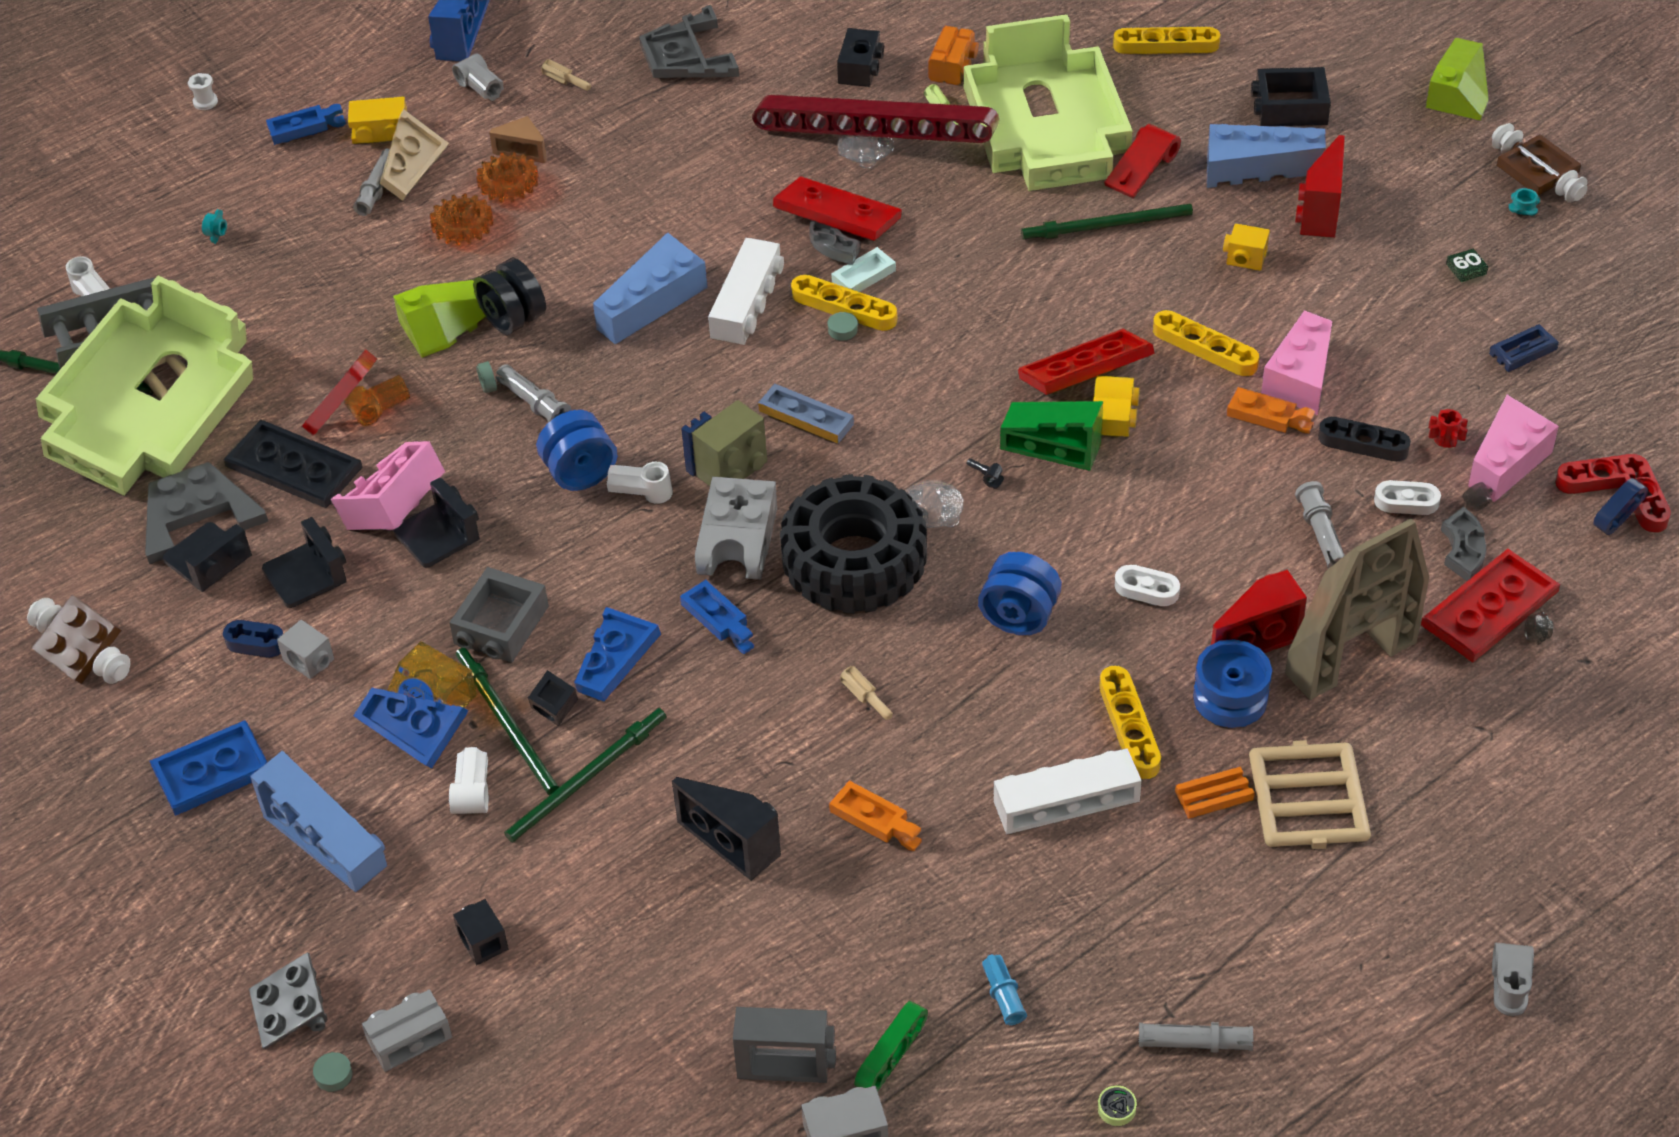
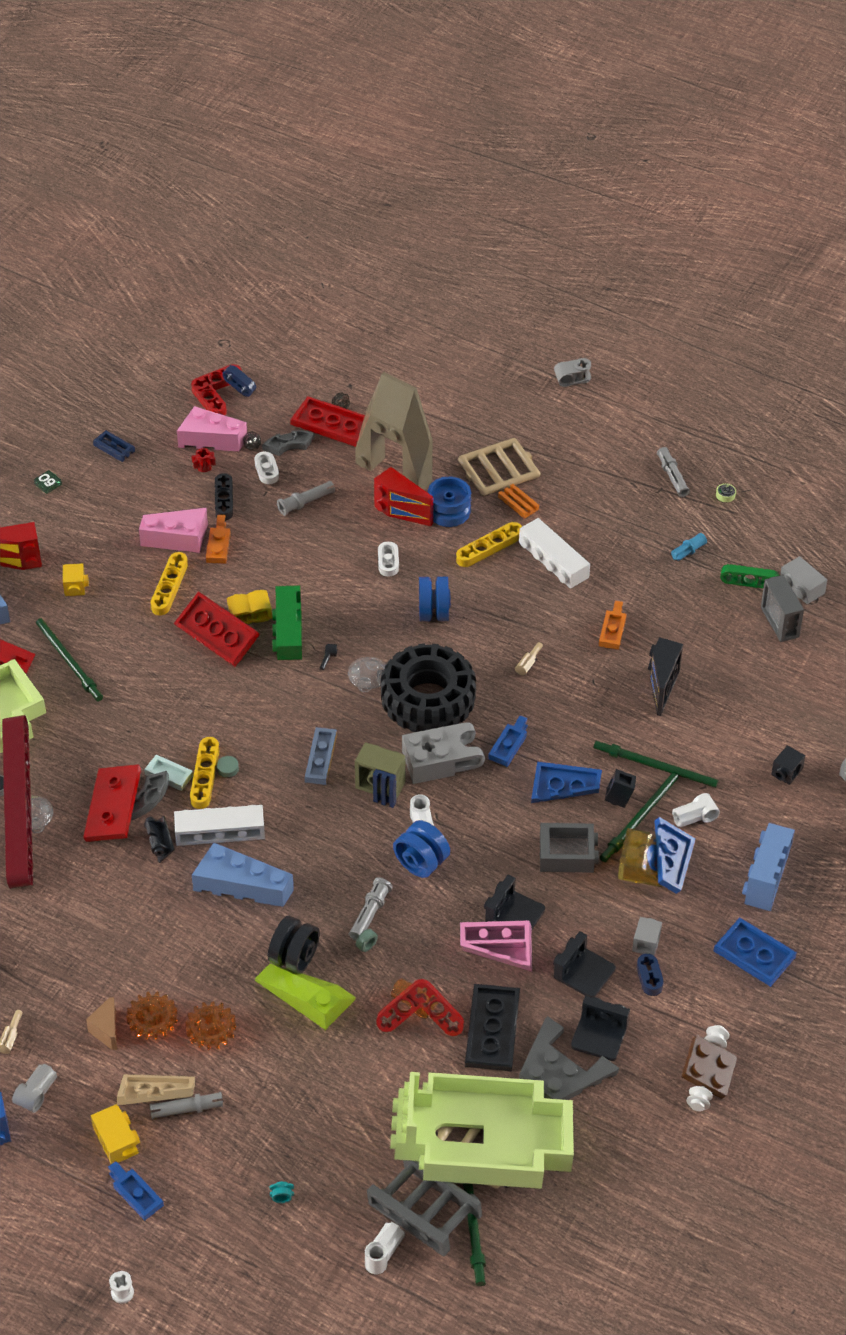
camera: 115 degrees left, 0 degrees up
(744, 227) = (160, 837): none -> black hinge

